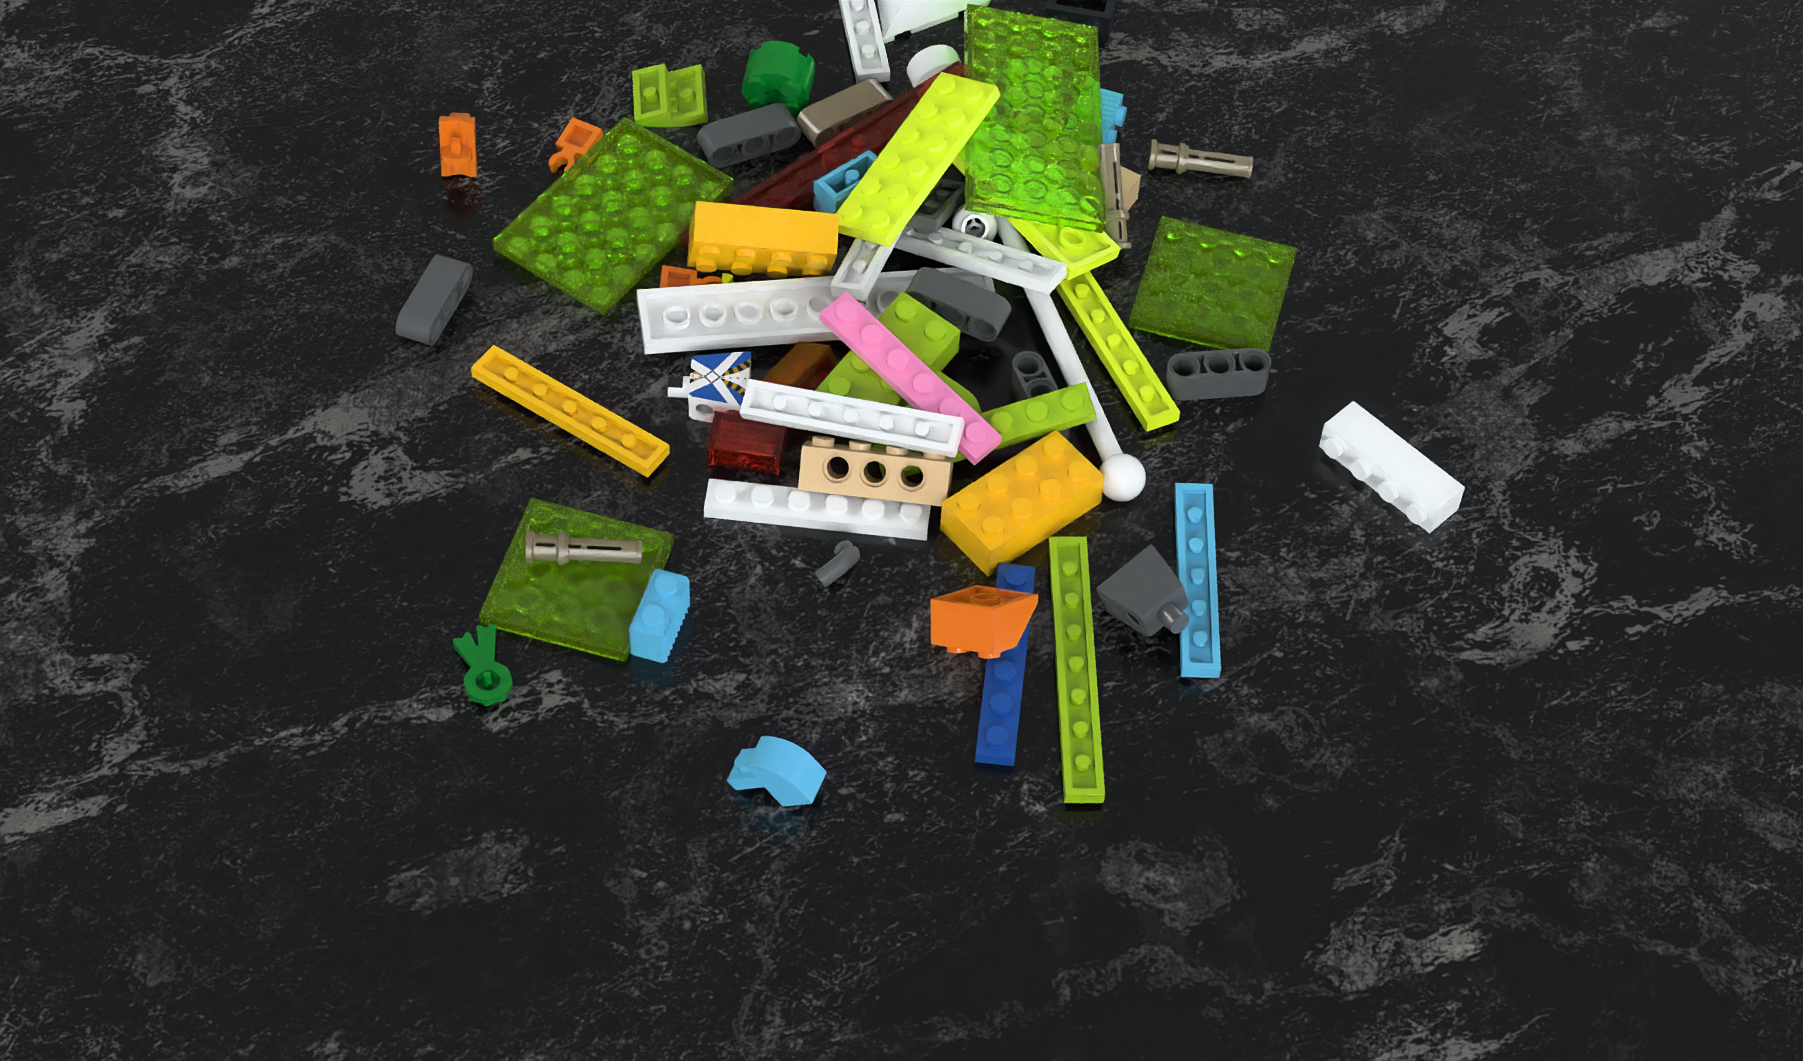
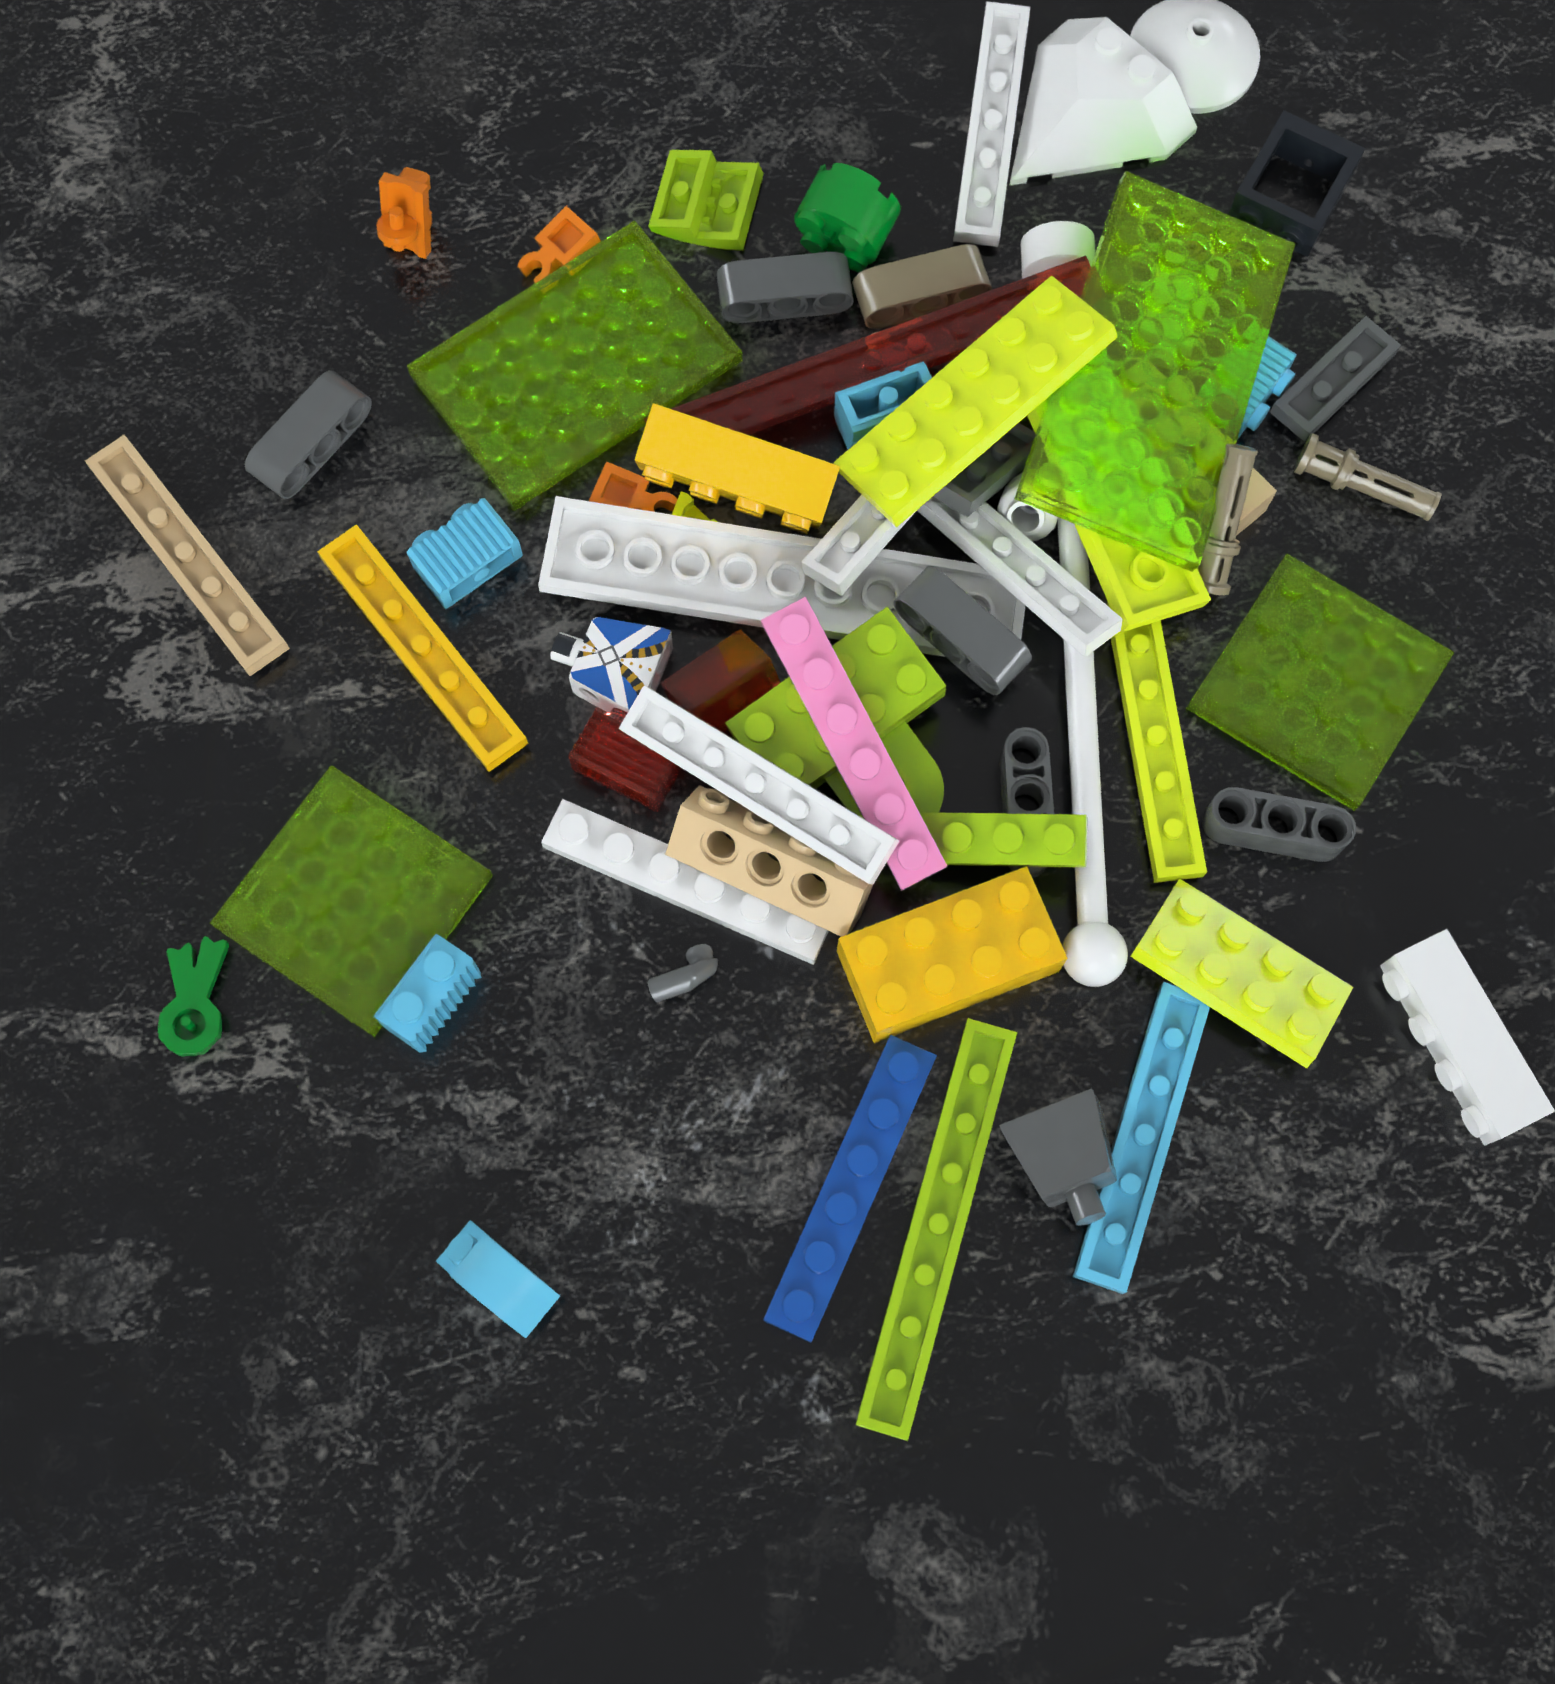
camera: 20 degrees right, 20 degrees up
(372, 394) = (187, 555): none -> tan plate
(565, 548) = (336, 866): dark tan pin -> none
(579, 345) = (464, 552): none -> medium azure brick
(981, 619) = (834, 1128): orange slope -> none
(1154, 106) = (1335, 378): none -> dark grey plate
(1226, 464) = (1243, 973): none -> neon yellow plate

